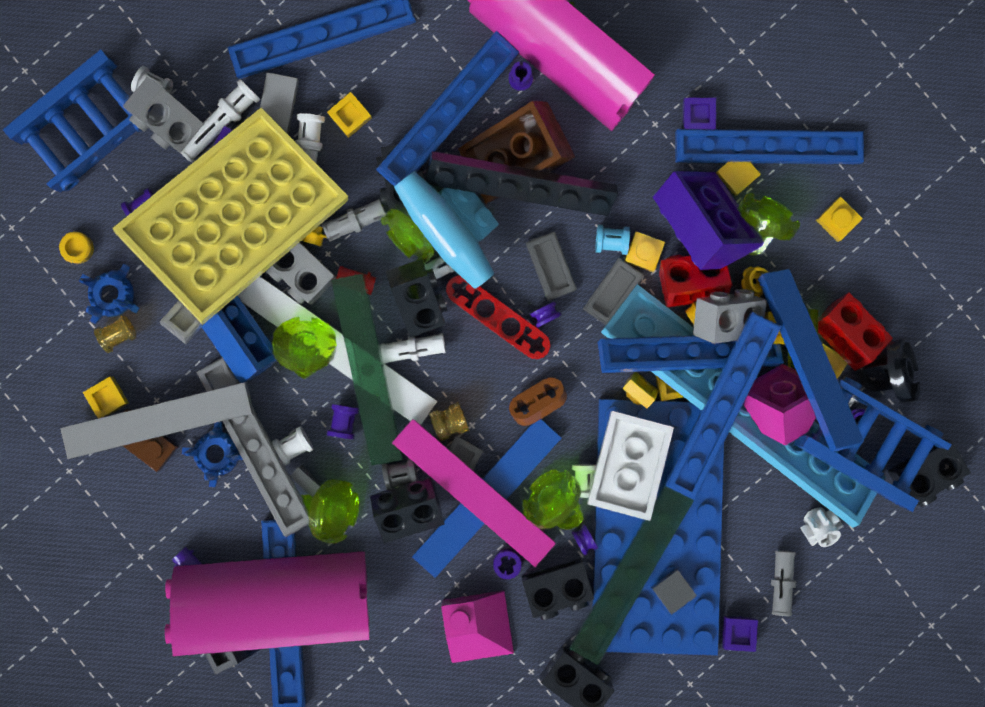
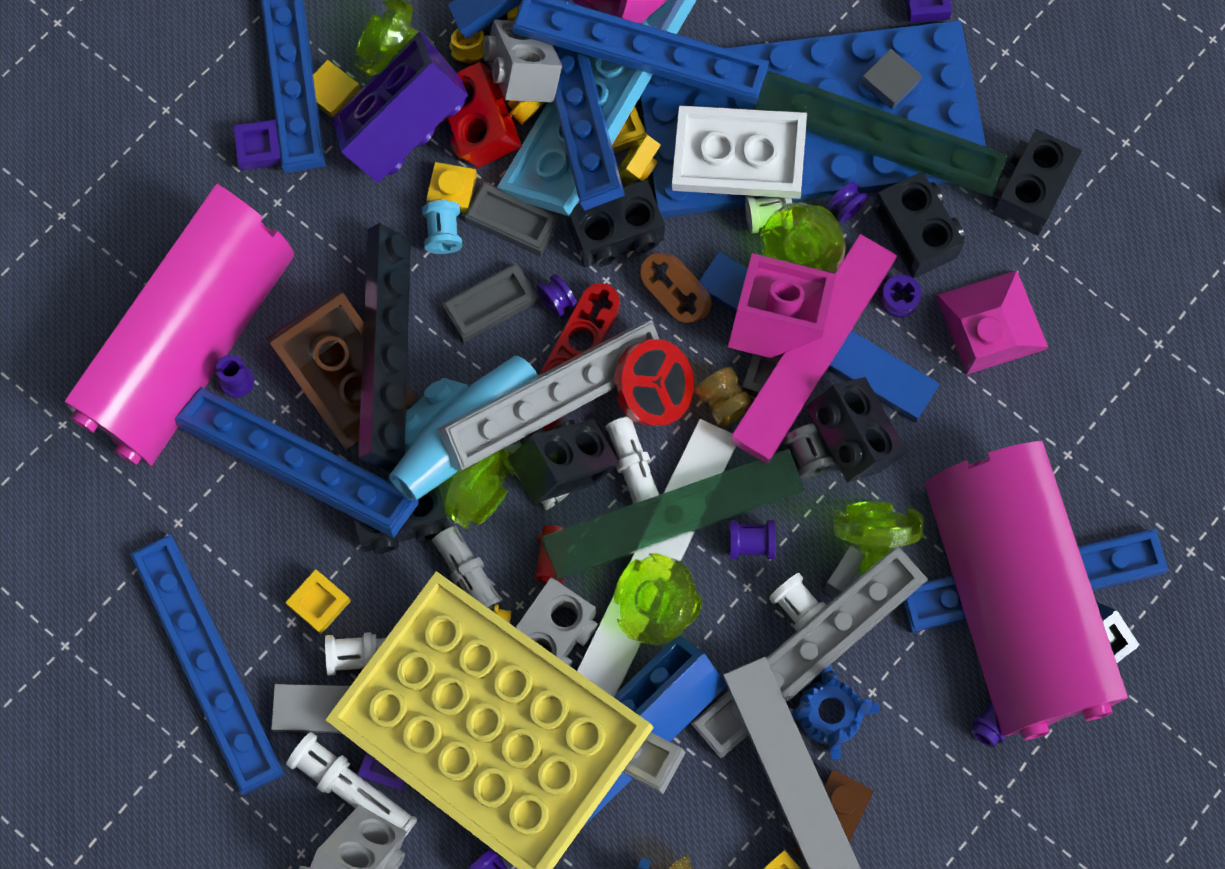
camera: 100 degrees left, 15 degrees down
(460, 296) = (538, 400): none -> light grey tile
(466, 372) = (654, 382): none -> red tile
(504, 474) = (780, 307): none -> dark pink slope
(585, 367) = (612, 219): none -> black brick

